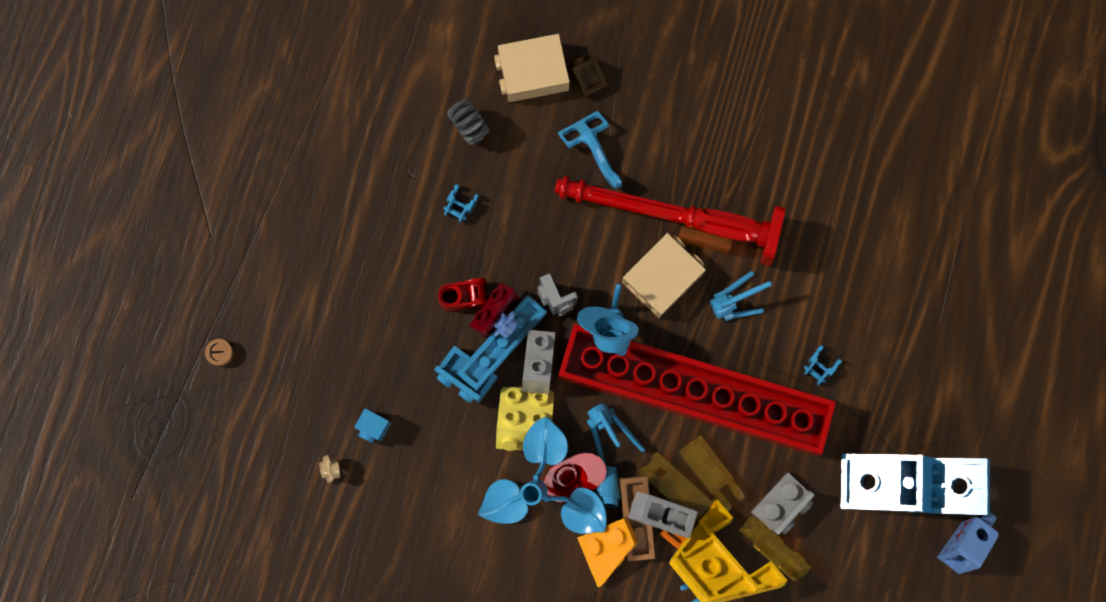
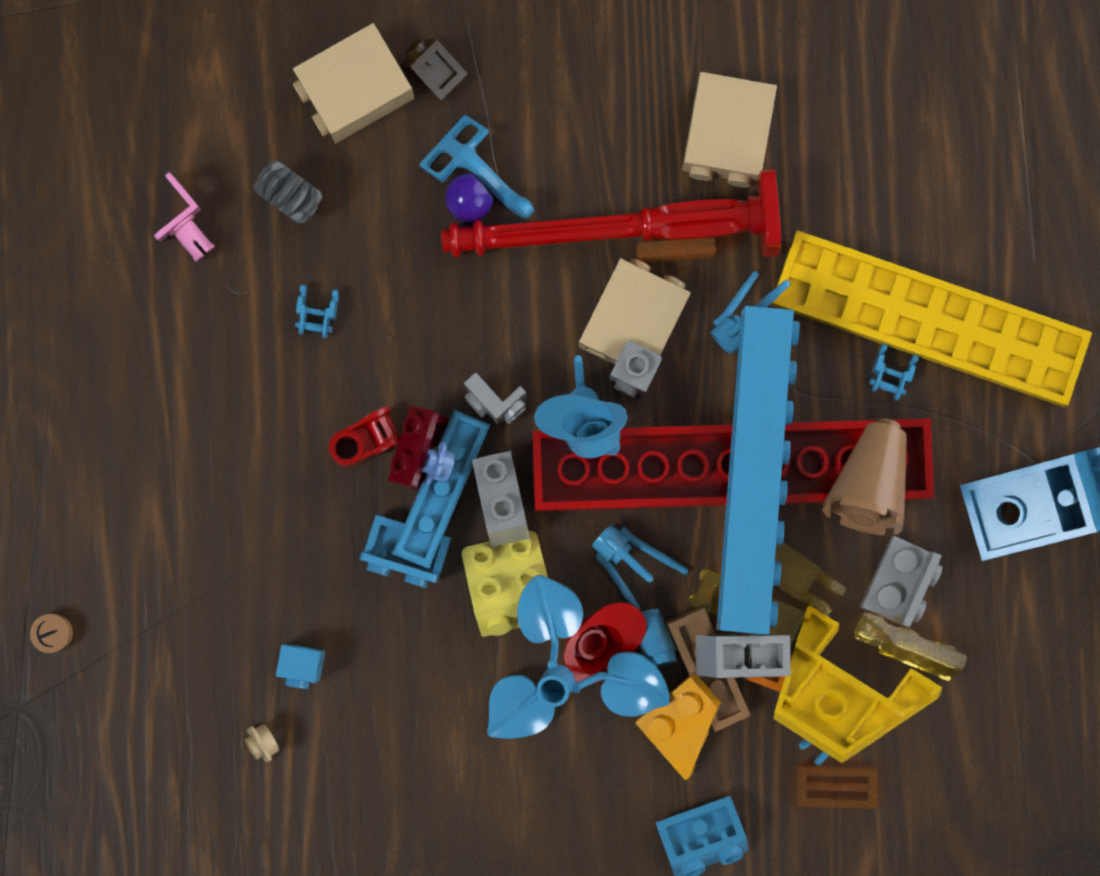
camera: 15 degrees left, 5 degrees up
(394, 122) = (183, 226): none -> bright pink bracket
(581, 163) = (468, 198): none -> dark purple piece
(652, 307) = (634, 369): none -> light grey bracket
(710, 396) = (756, 470): none -> dark azure brick
(764, 174) = (729, 129): none -> tan brick
(783, 429) = (872, 482): none -> medium nougat cone
(858, 340) = (932, 319): none -> yellow plate

